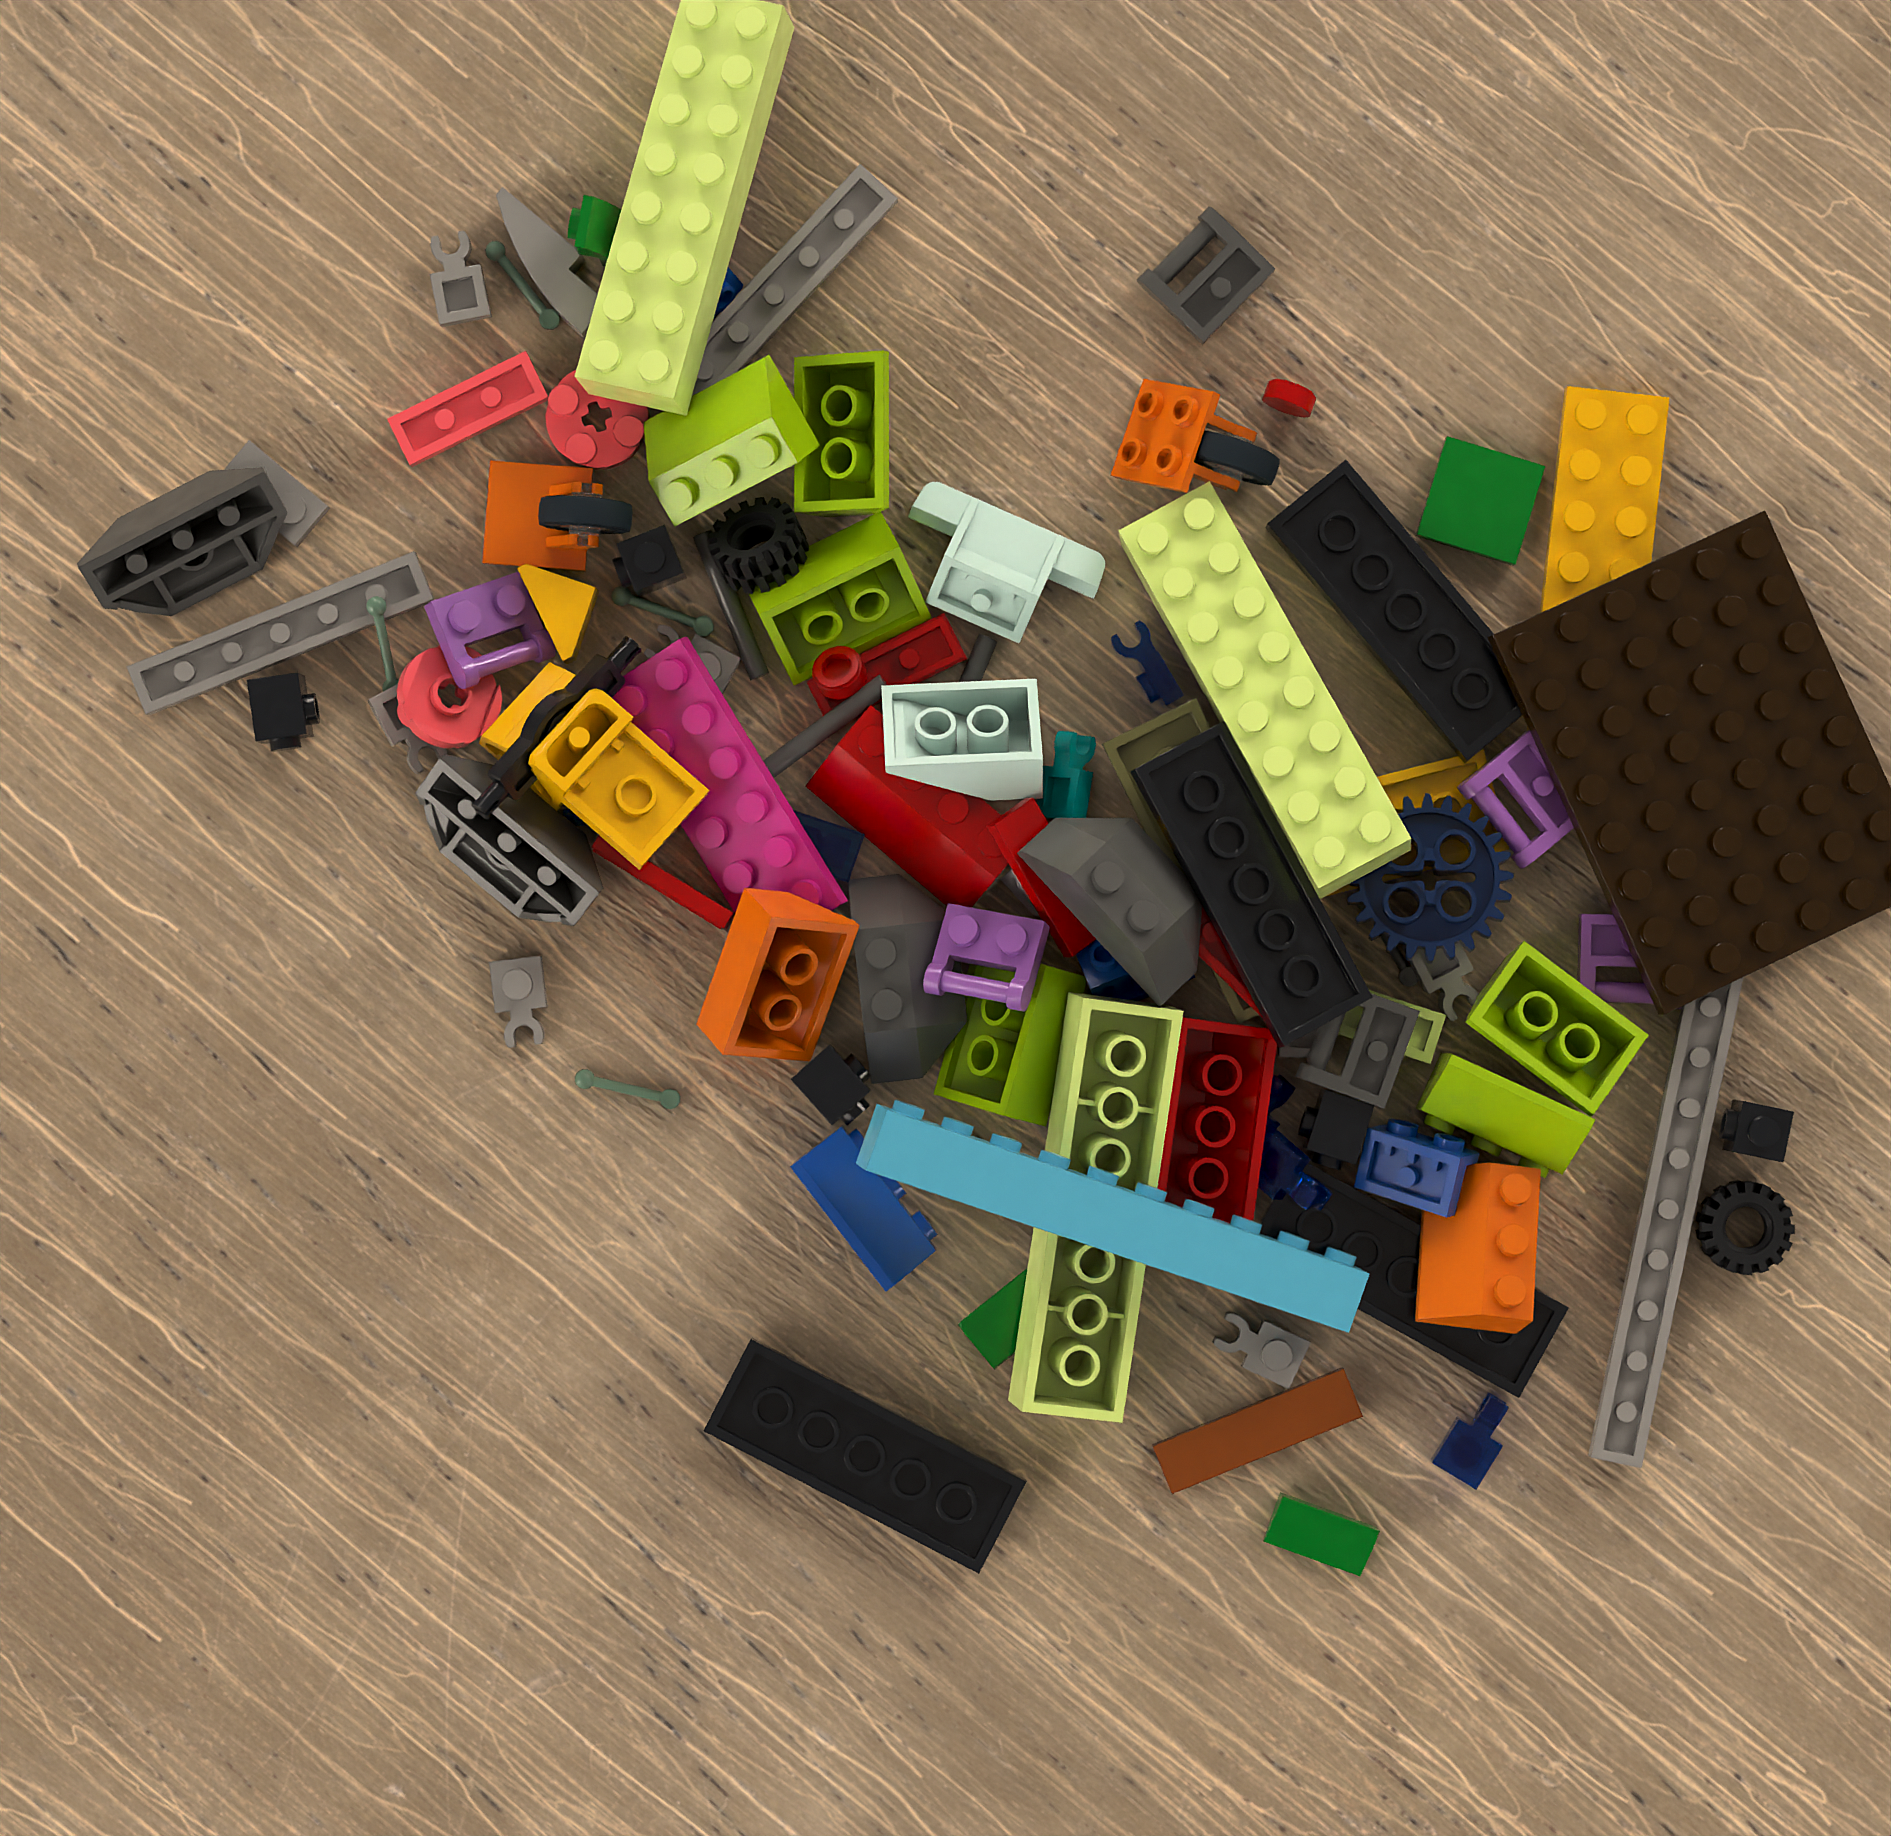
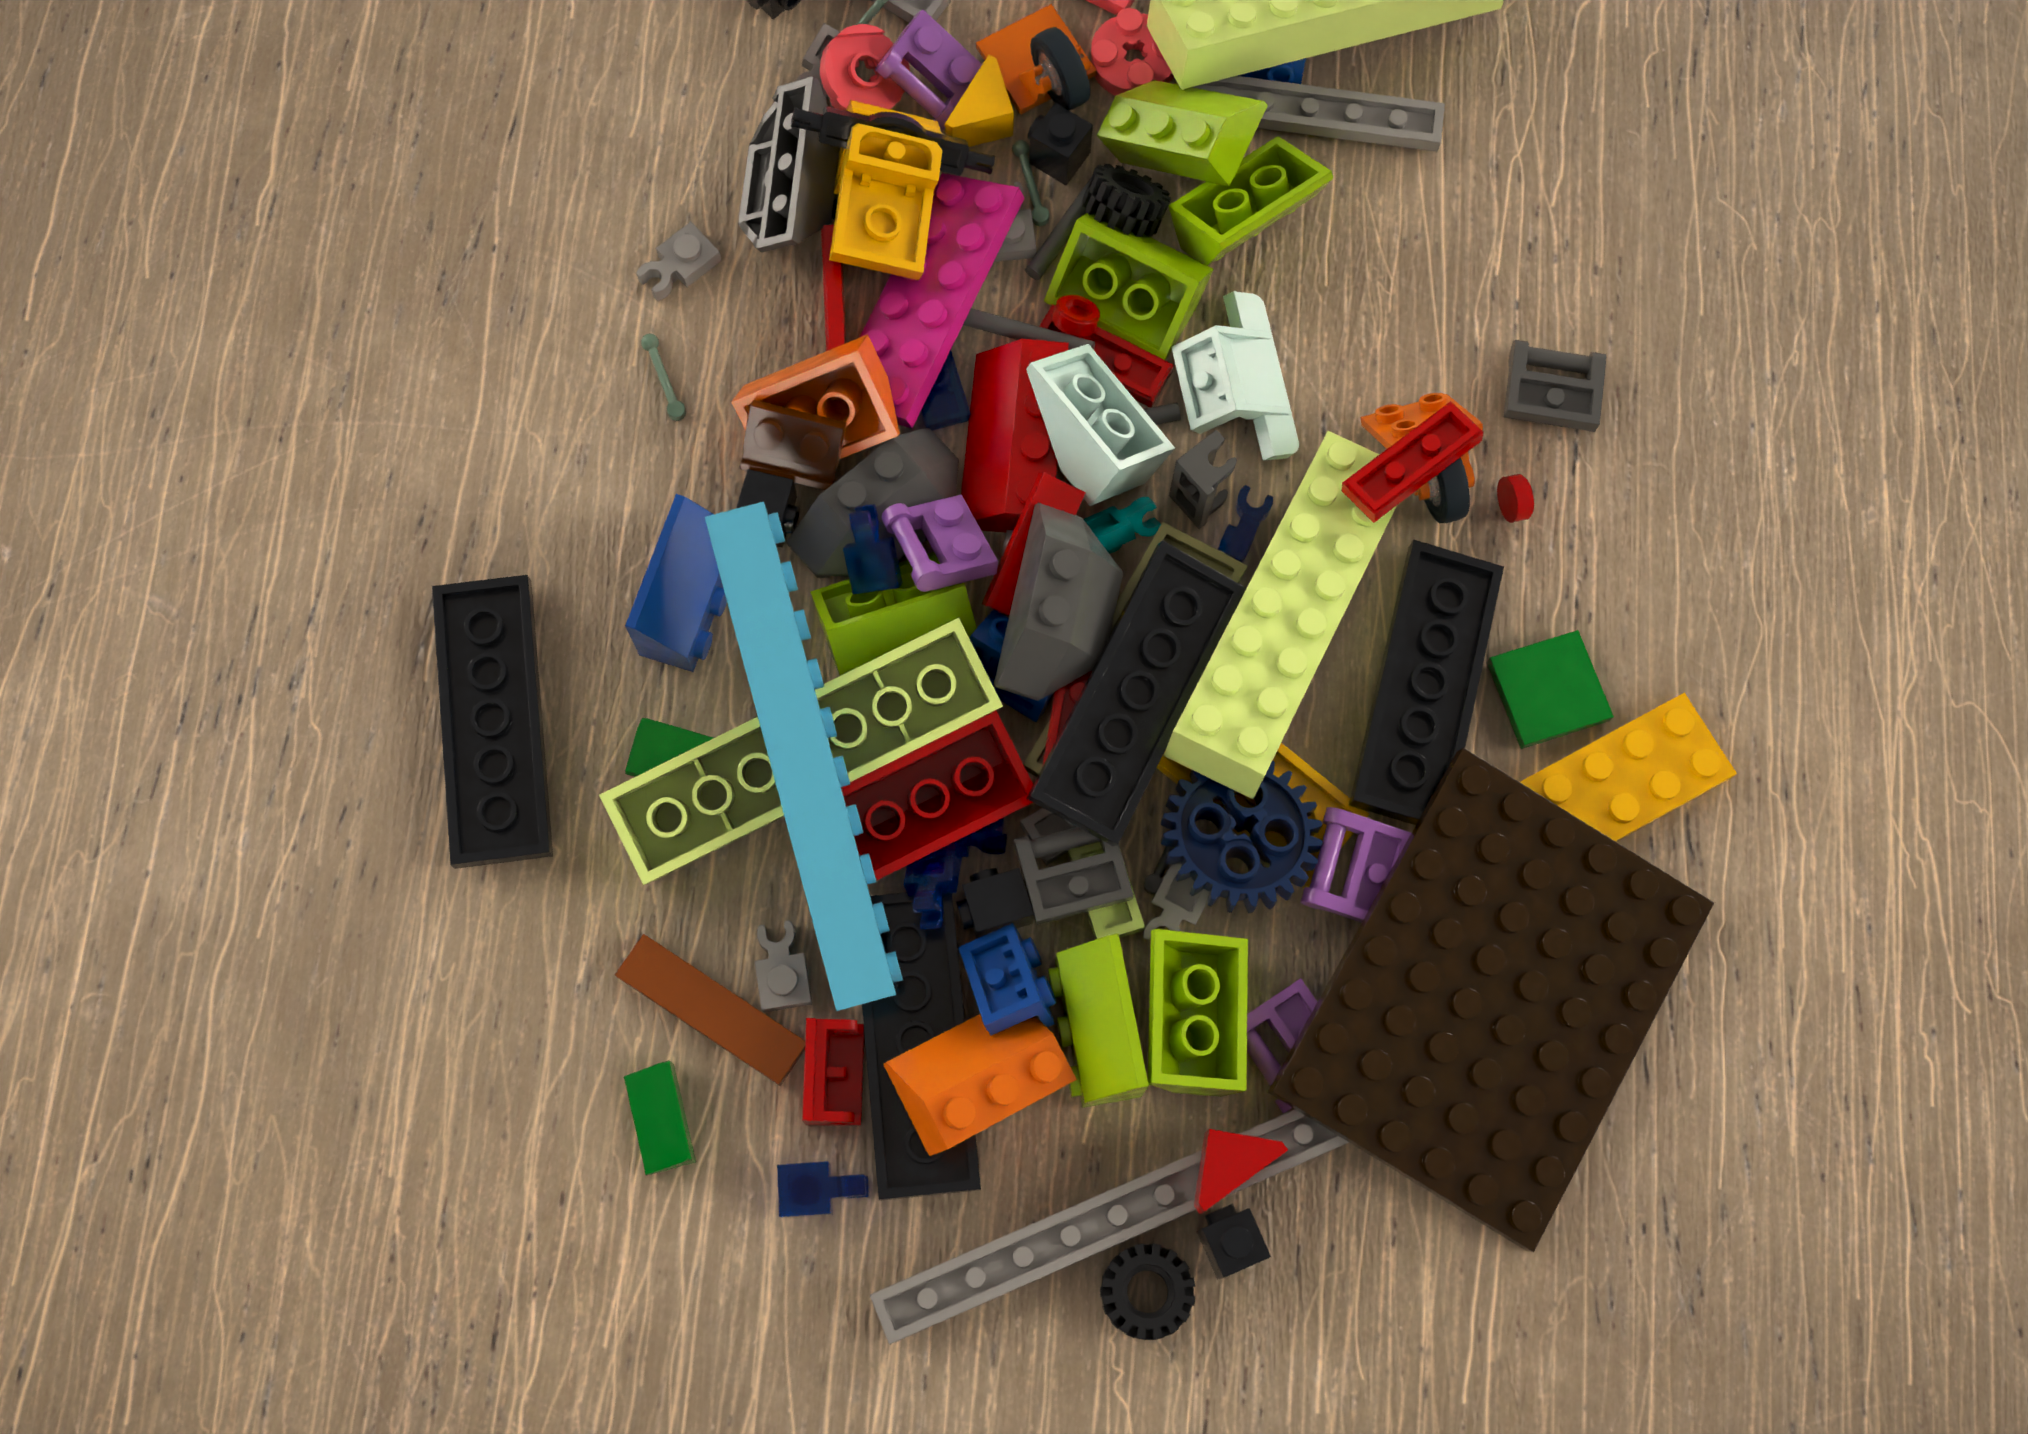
camera: 50 degrees right, 15 degrees down
(799, 1024) = (792, 444): none -> reddish brown plate
(958, 1029) = (870, 560): none -> clear blue plate
(1085, 684) = (1197, 480): none -> dark grey hinge
(1210, 486) = (1412, 461): none -> red tile
(1386, 1364) = (833, 1072): none -> red hinge
(1697, 1090) = (1229, 1162): none -> red slope

